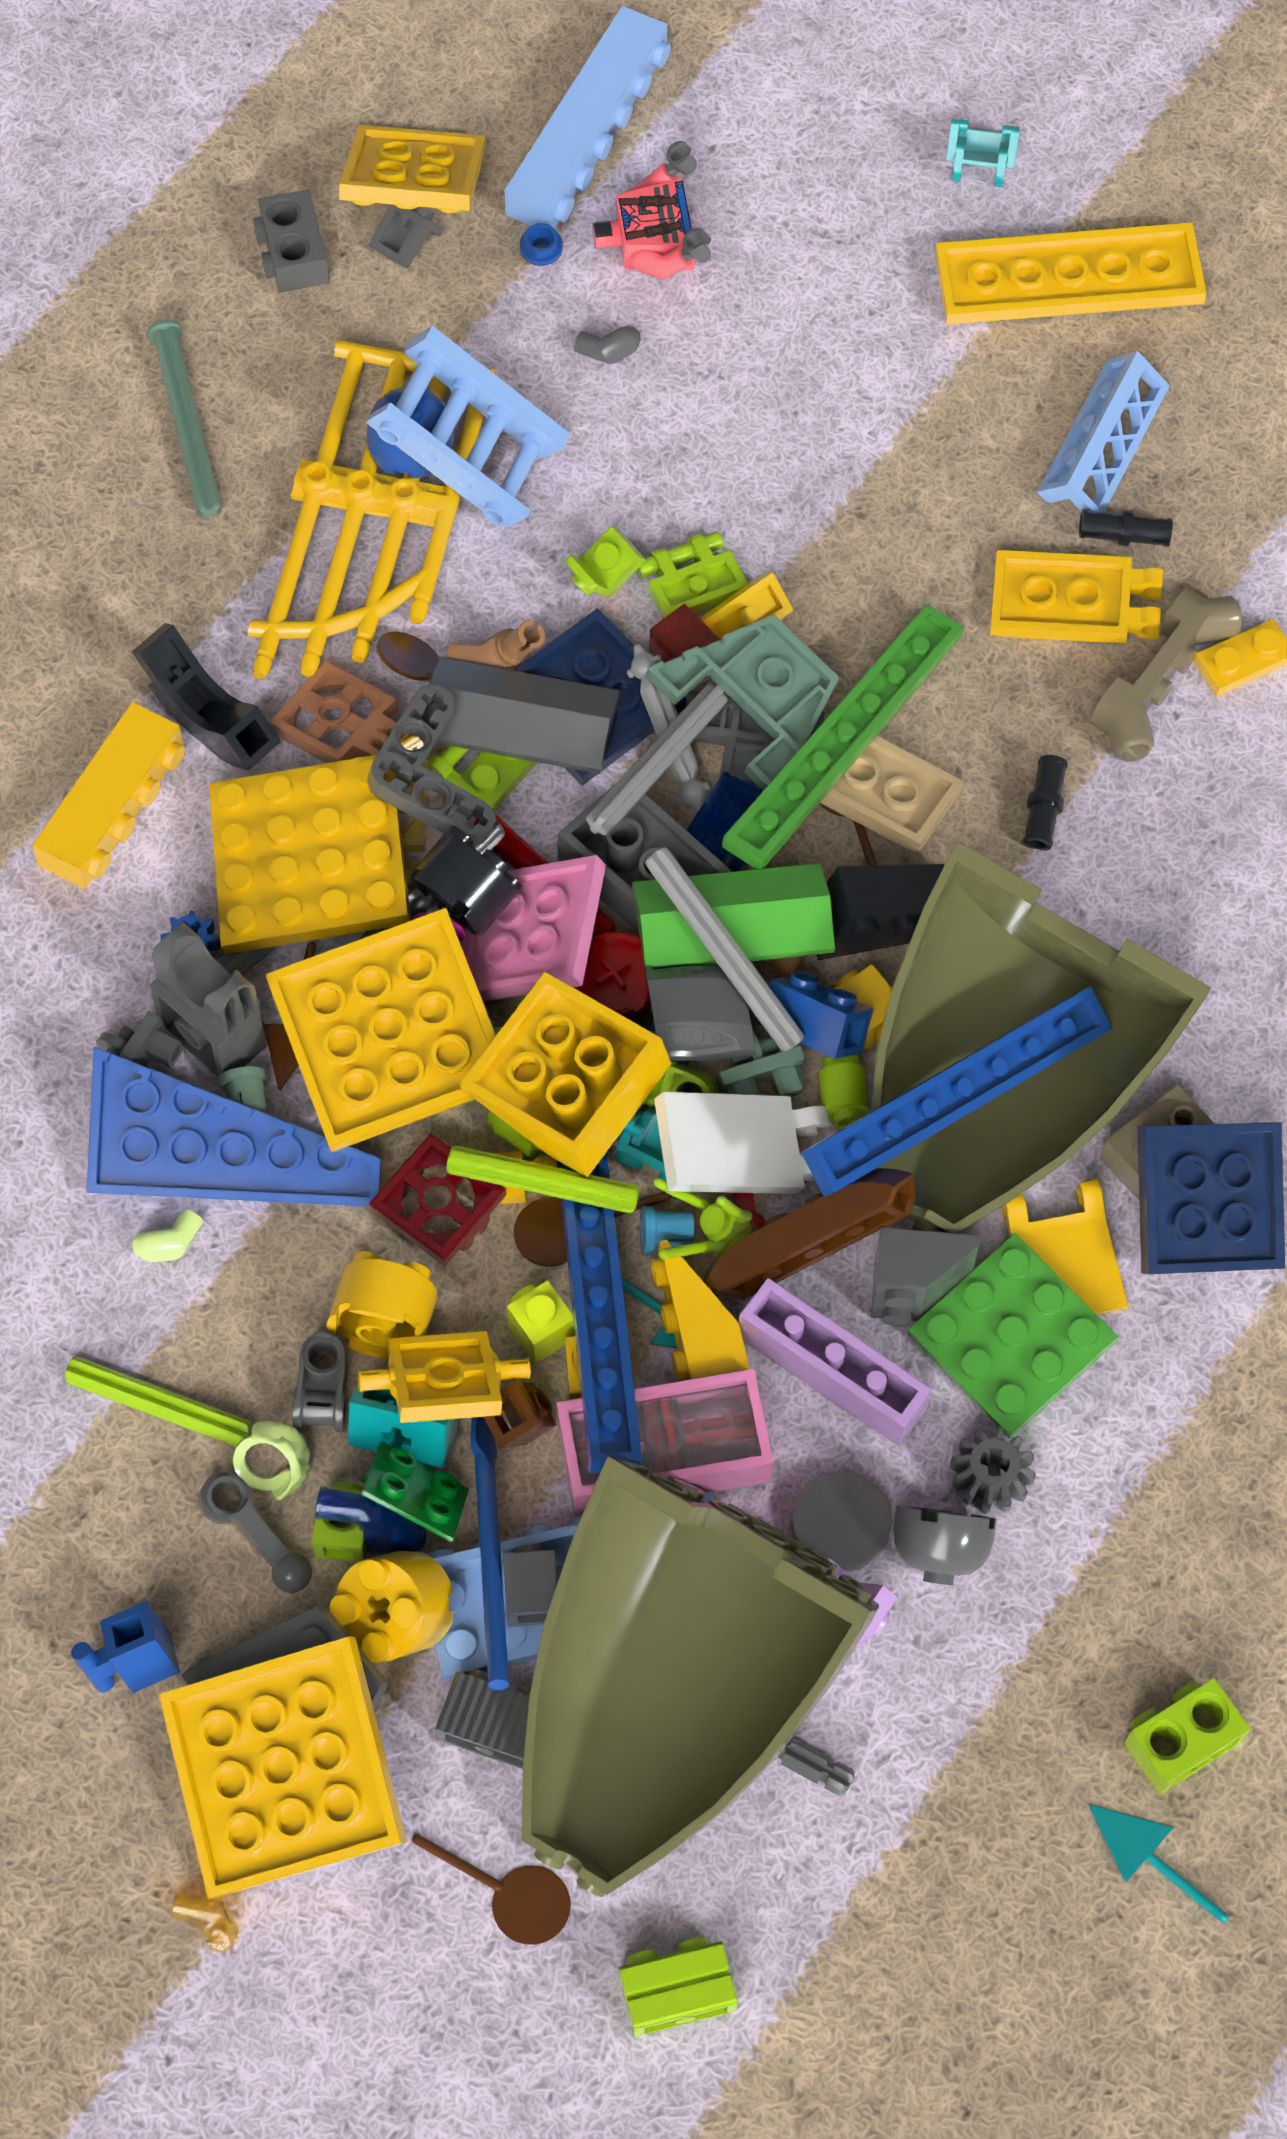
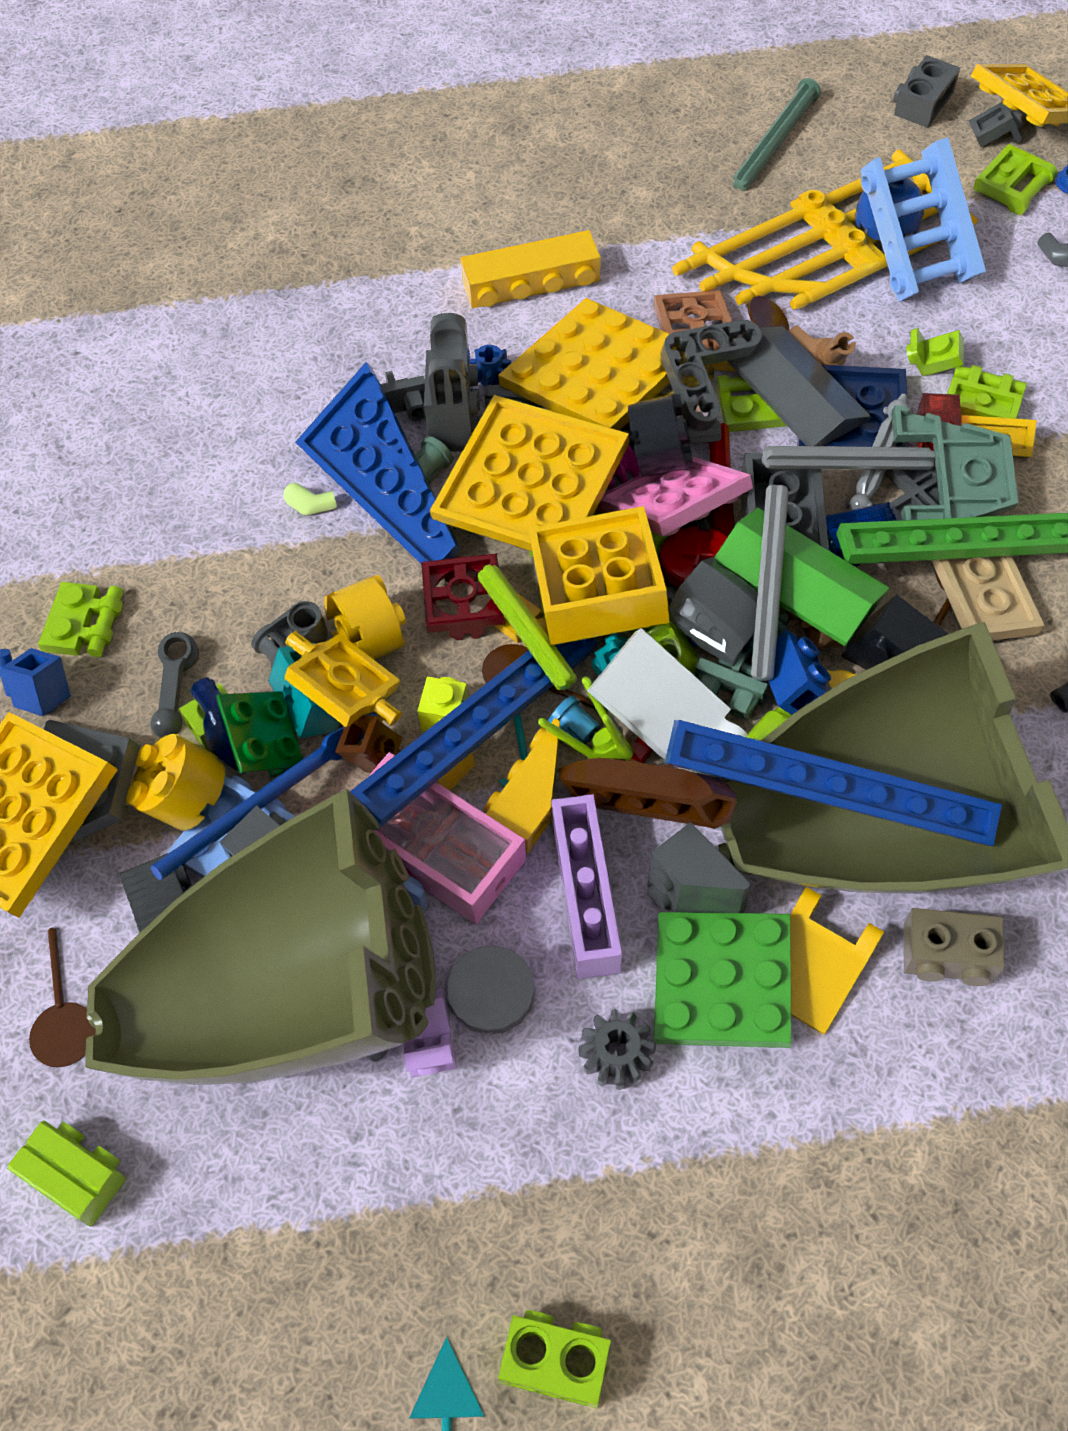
camera: 50 degrees right, 5 degrees down
(75, 1565) = (71, 616): none -> lime plate
(157, 1401) = (207, 575): lime axle -> none
(222, 723) = (627, 252): black arch -> none
(290, 1444) = (234, 652): yellowish green piece -> none
(470, 290) = (1006, 173): none -> lime plate
(817, 1766) = (304, 1116): dark grey axle -> none
(942, 1541) = (532, 1060): dark grey cylinder -> none
(1211, 1197) = (952, 1012): dark blue plate -> none

